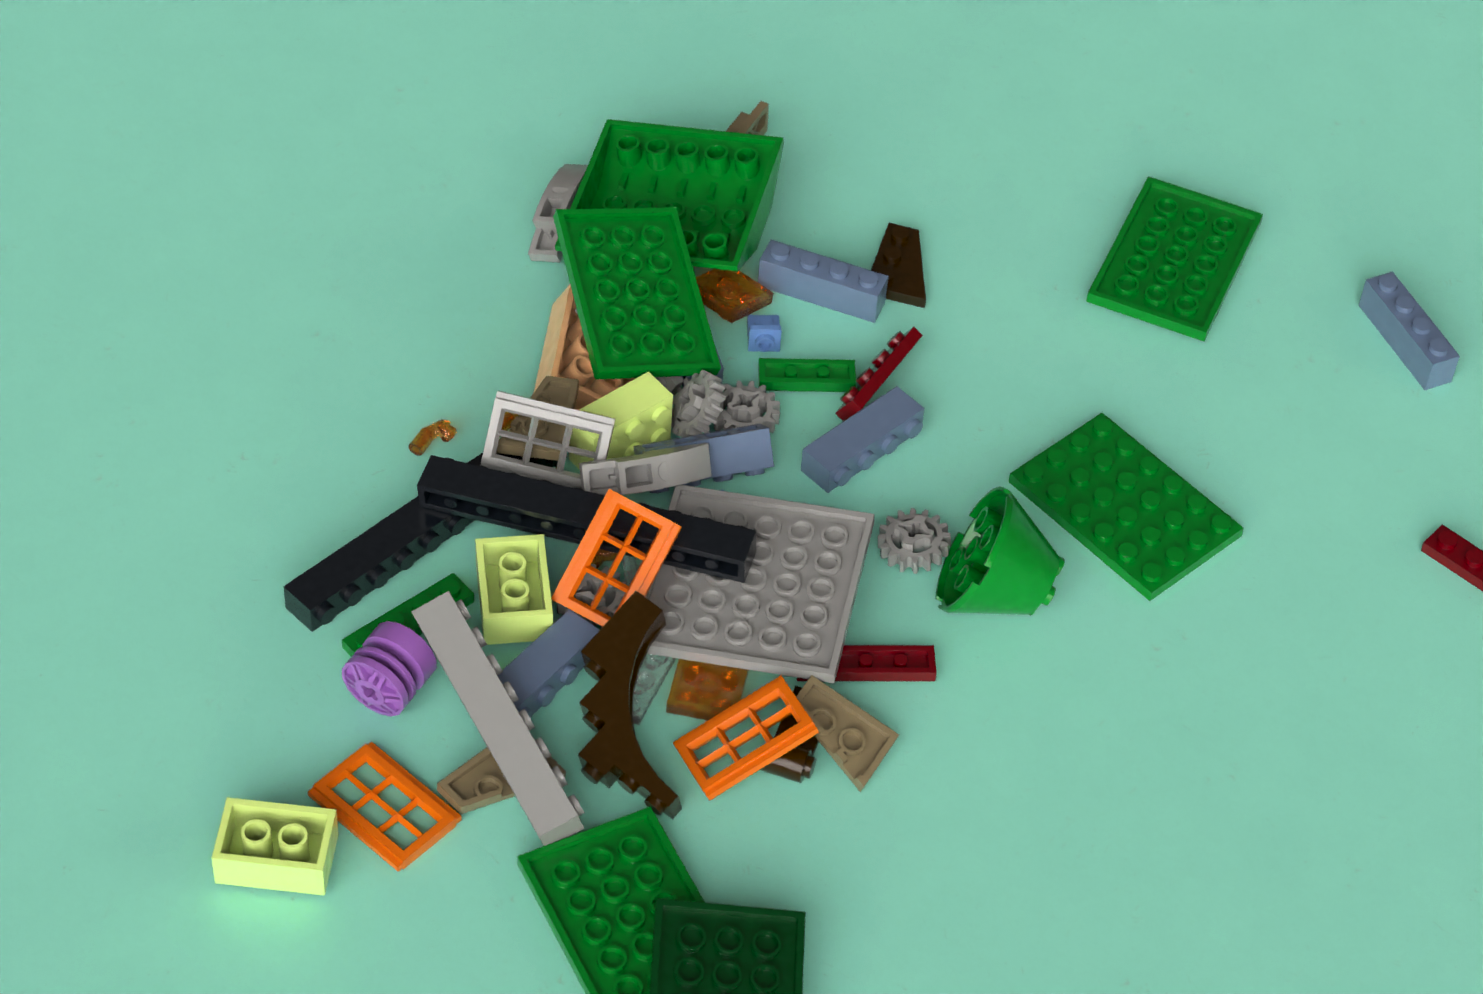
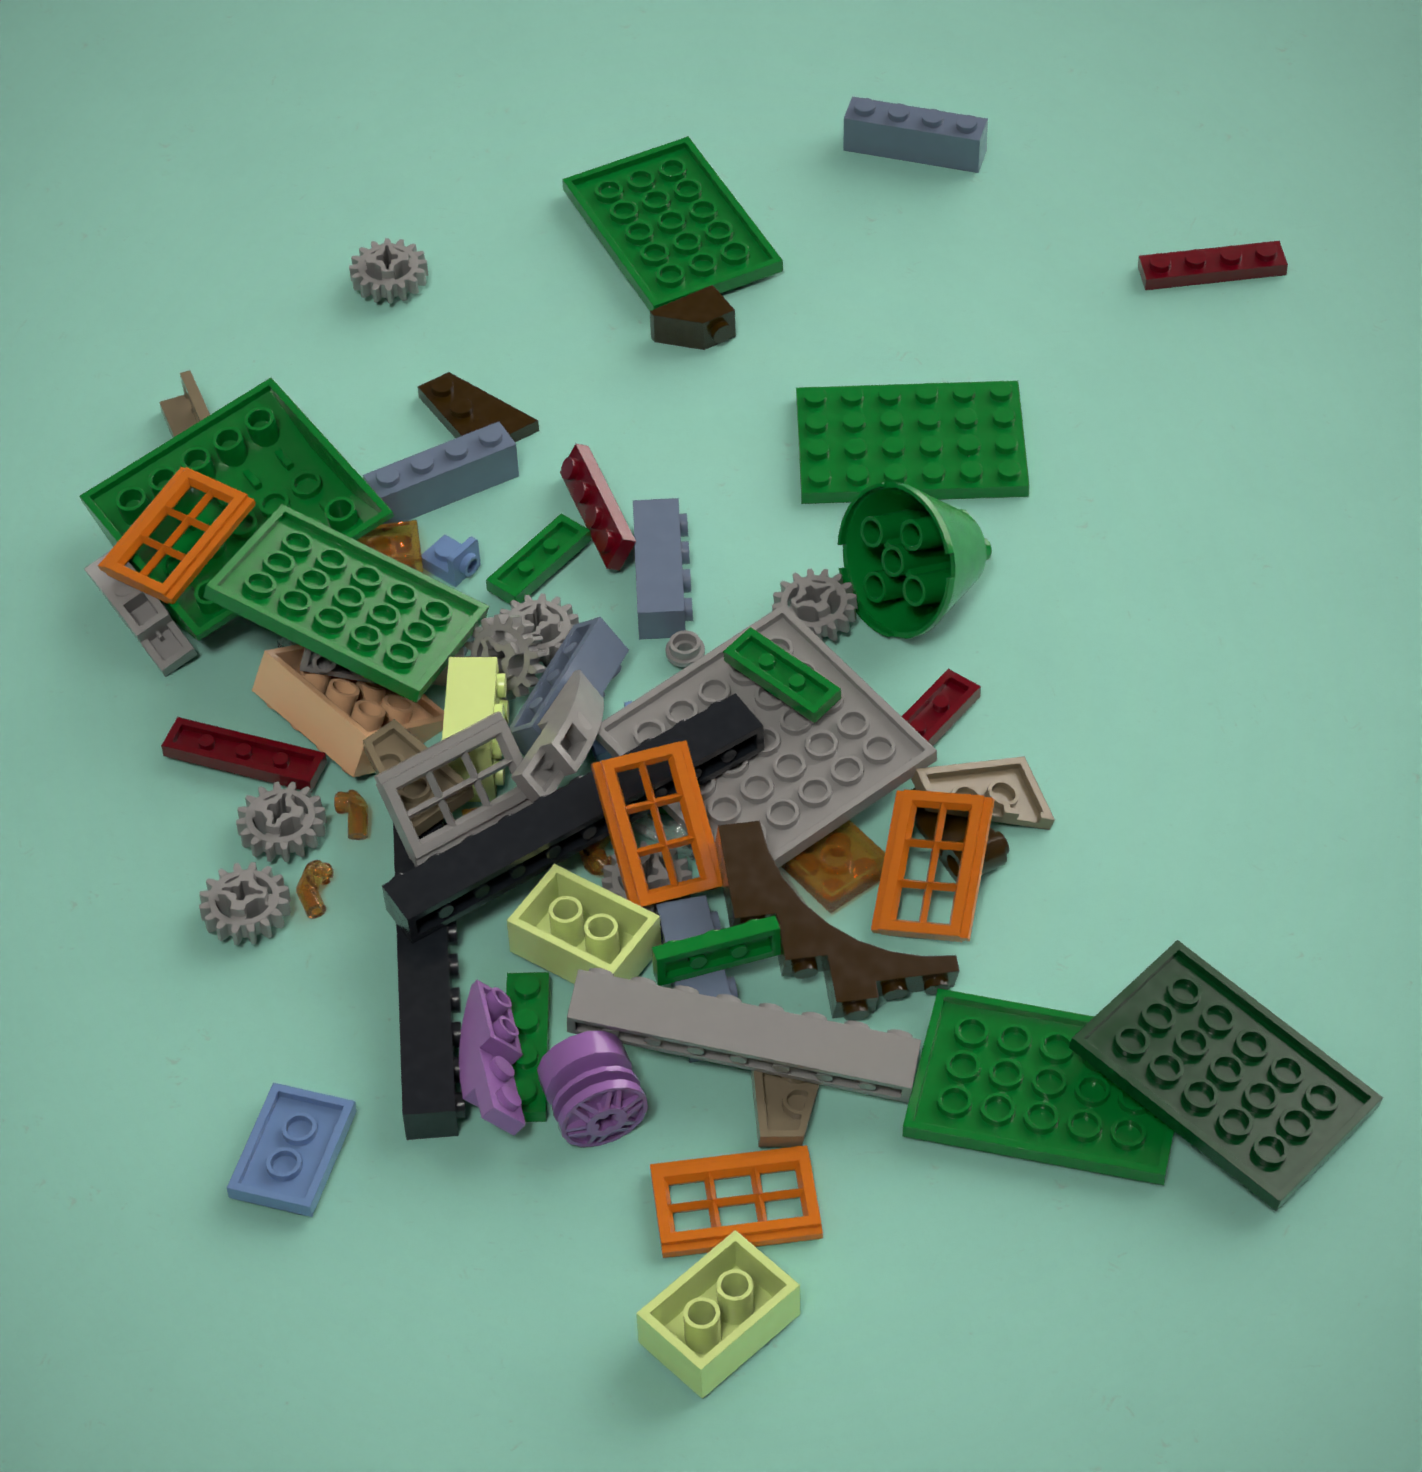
camera: 45 degrees left, 0 degrees up
(221, 554) = (292, 1149): none -> medium blue plate
(368, 603) = (485, 1057): none -> medium lavender slope
(384, 409) = (244, 903): none -> light grey gear
(464, 385) = (284, 821): none -> light grey gear
(501, 335) = (243, 754): none -> dark red plate
(549, 659) = (716, 950): none -> green plate
(616, 162) = (191, 564): none -> orange piece
(807, 549) = (782, 674): none -> green plate
(811, 493) = (684, 648): none -> light grey plate
(970, 145) = (388, 270): none -> light grey gear
(1100, 321) = (694, 320): none -> dark brown slope

